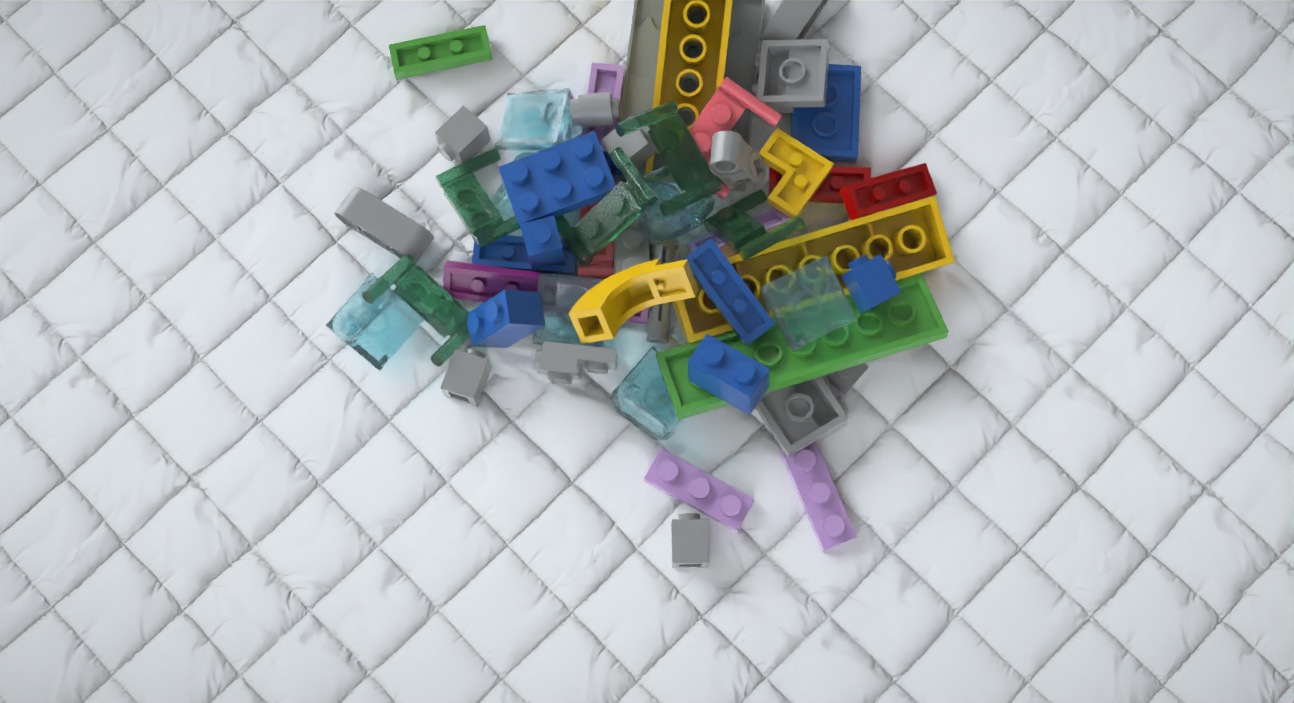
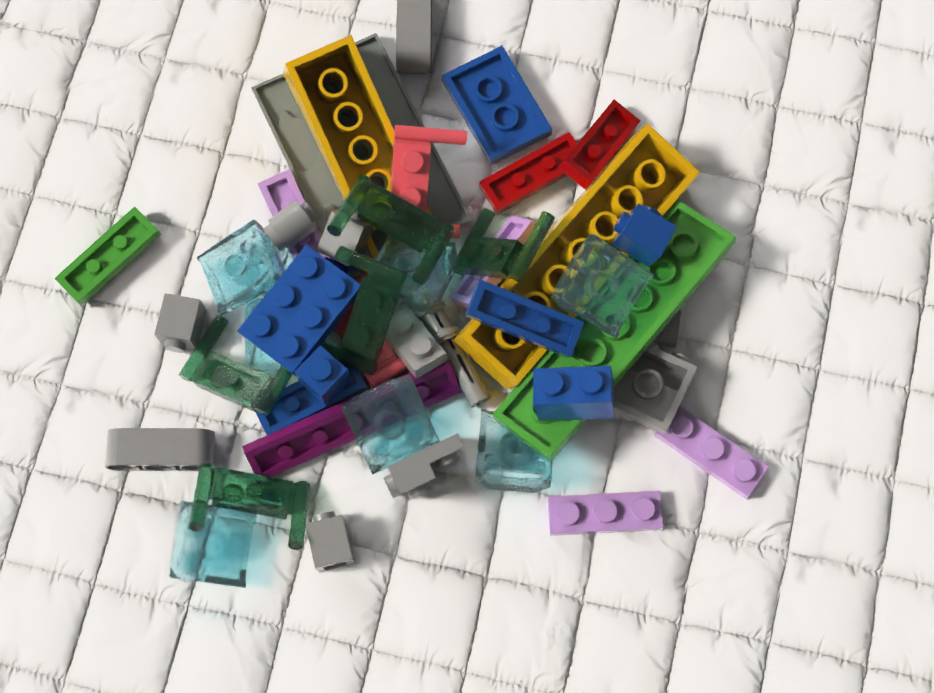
camera: 30 degrees left, 0 degrees up
(506, 319) = (335, 466): blue brick -> none
(620, 296) = (429, 382): yellow arch -> none
(689, 541) = (628, 564): light grey brick -> none
(735, 160) = (450, 195): light grey piece -> none
(792, 73) = (448, 87): light grey plate -> none
(801, 171) = (512, 168): yellow plate -> none

